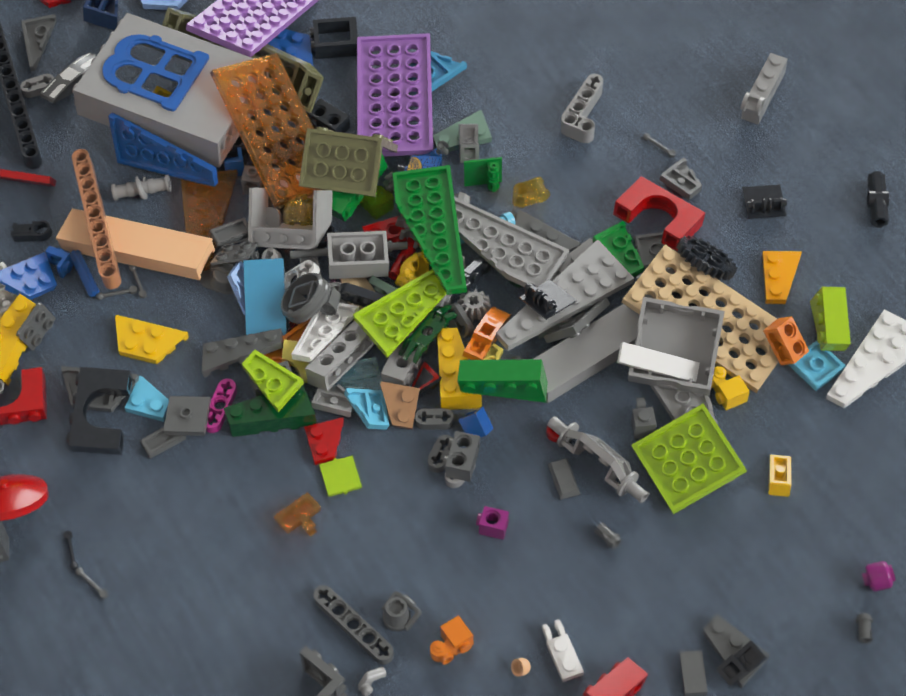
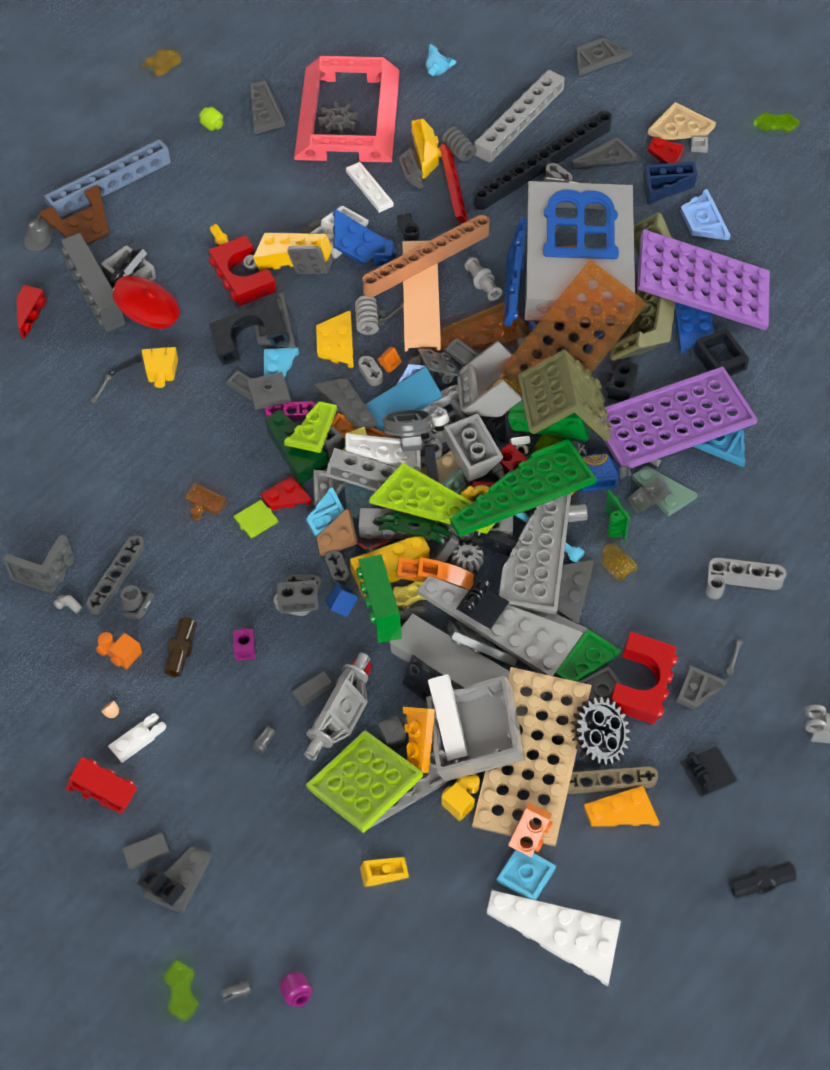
camera: 70 degrees right, 0 degrees up
(94, 512) = (160, 365): none -> yellow torso
(133, 302) = (366, 315): none -> light grey piece
(201, 299) = (389, 359): none -> orange tile
(203, 320) = (367, 372): none -> light grey beam
(359, 221) = (520, 442): none -> white tile
(472, 582) = (180, 647): none -> dark brown piece
(599, 379) = (417, 677): none -> black hinge
(664, 392) = (420, 730): none -> light orange wing
(746, 267) = (616, 776): none -> dark tan beam
(831, 318) = (575, 866): lime wedge -> none
(858, 678) = (182, 1001): none -> clear neon green tile

